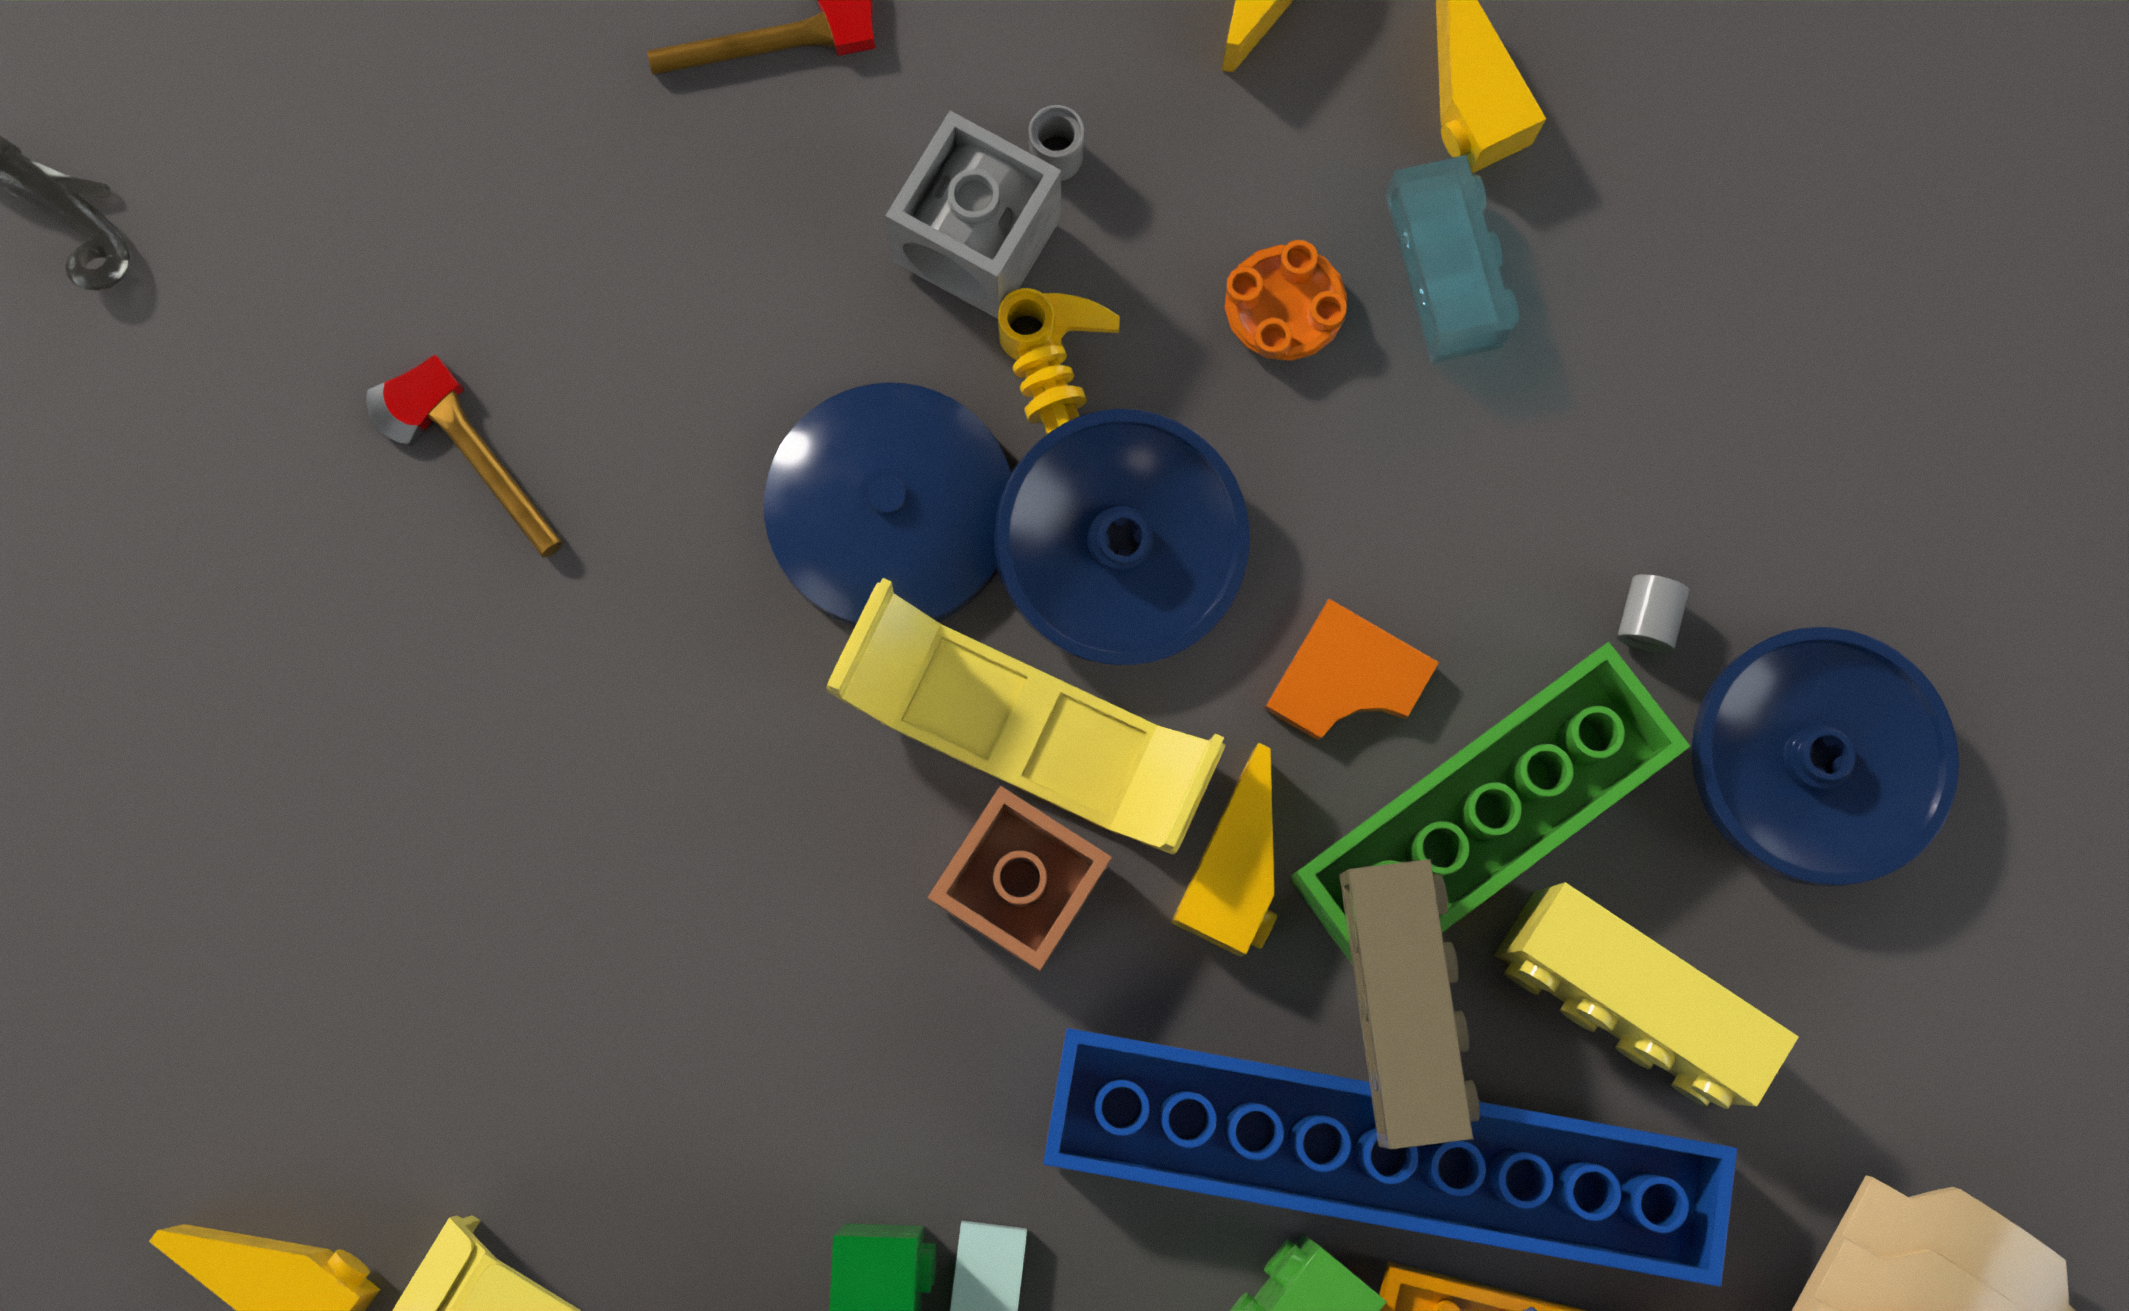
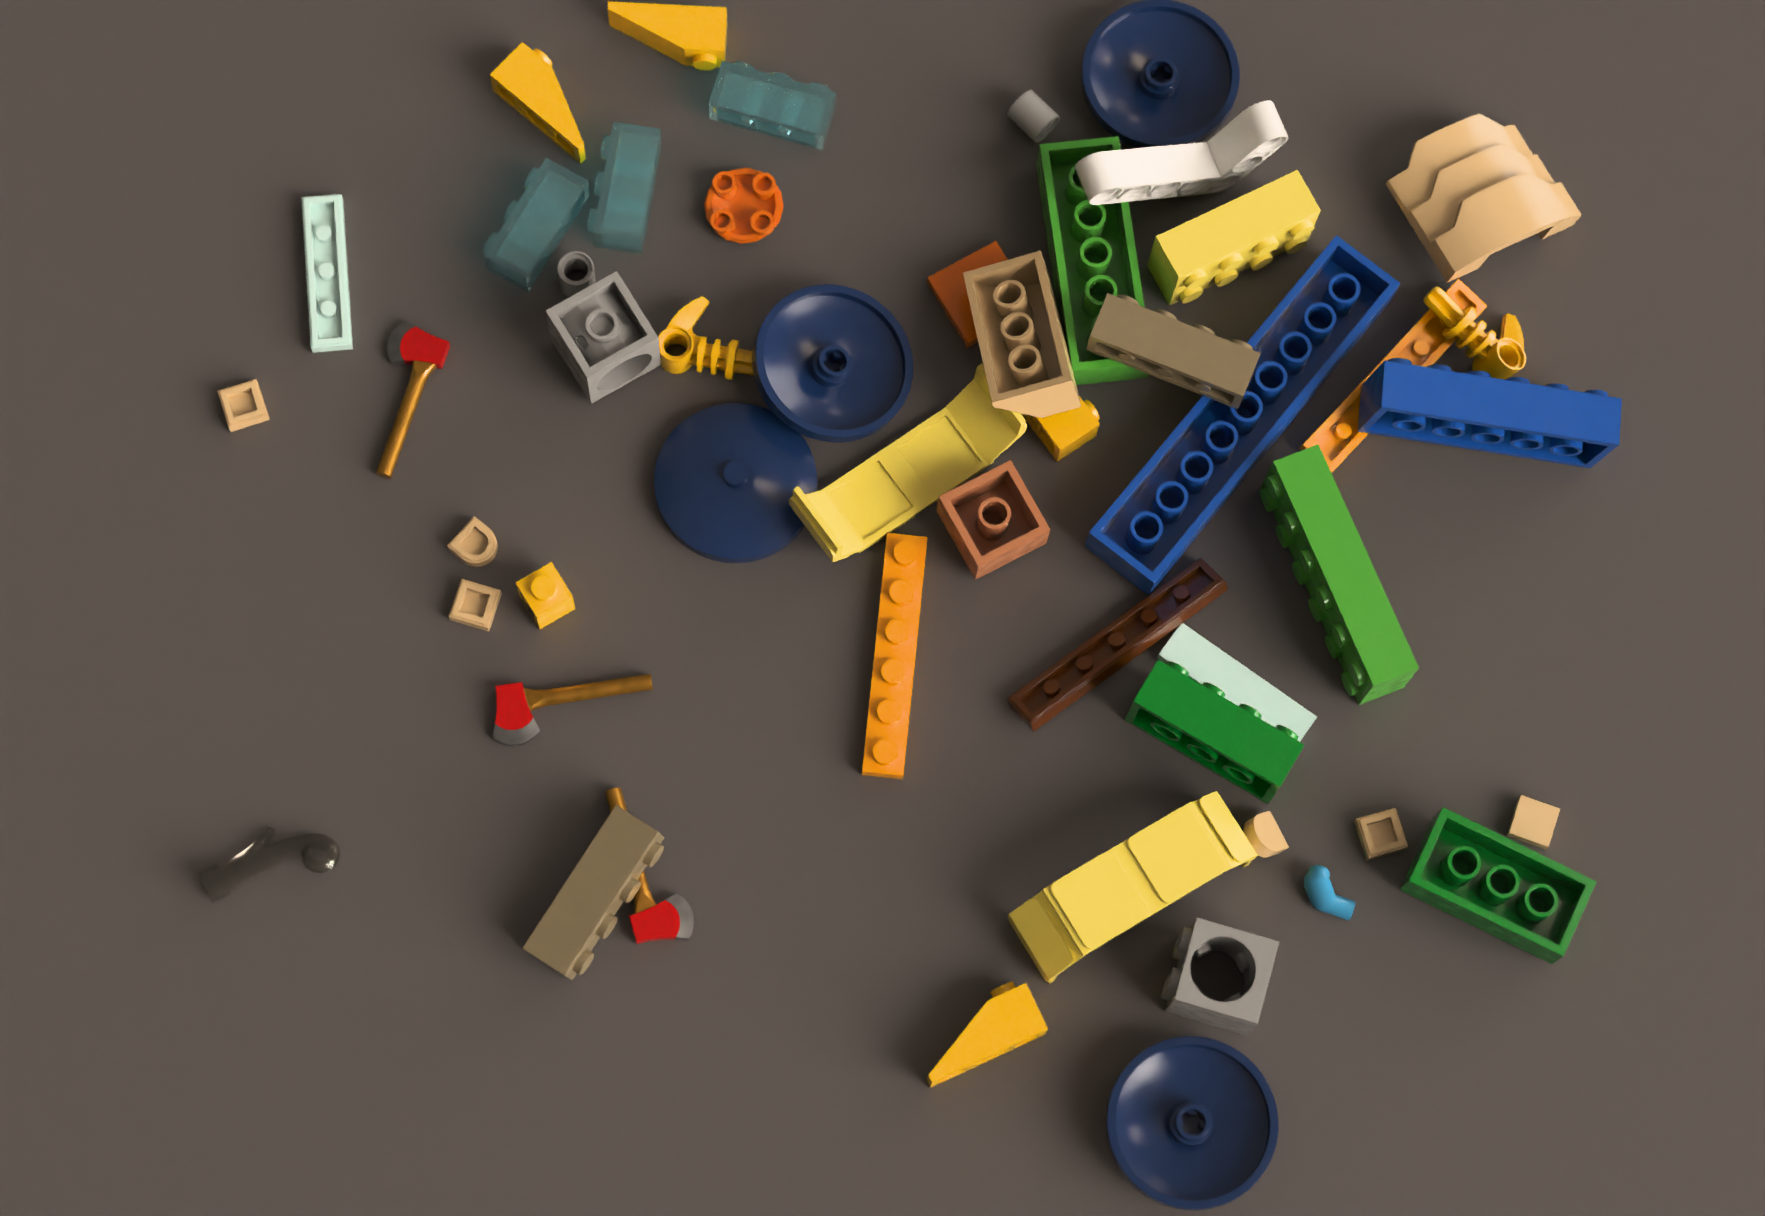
camera: 65 degrees left, 5 degrees down
(202, 634) = (594, 893): none -> dark tan brick
(220, 729) = (652, 921): none -> piece
(537, 270) = (475, 605): none -> tan tile
(586, 346) = (545, 595): none -> yellow brick
(620, 224) = (474, 544): none -> tan tile
(760, 852) = (894, 656): none -> light orange plate
(946, 1155) = (1117, 644): none -> reddish brown tile
(1096, 55) = (535, 224): none -> clear light blue brick
(1217, 138) = (625, 187): none -> clear light blue brick
(1299, 774) = (1021, 337): none -> tan slope
(1703, 866) = (1184, 168): none -> white beam

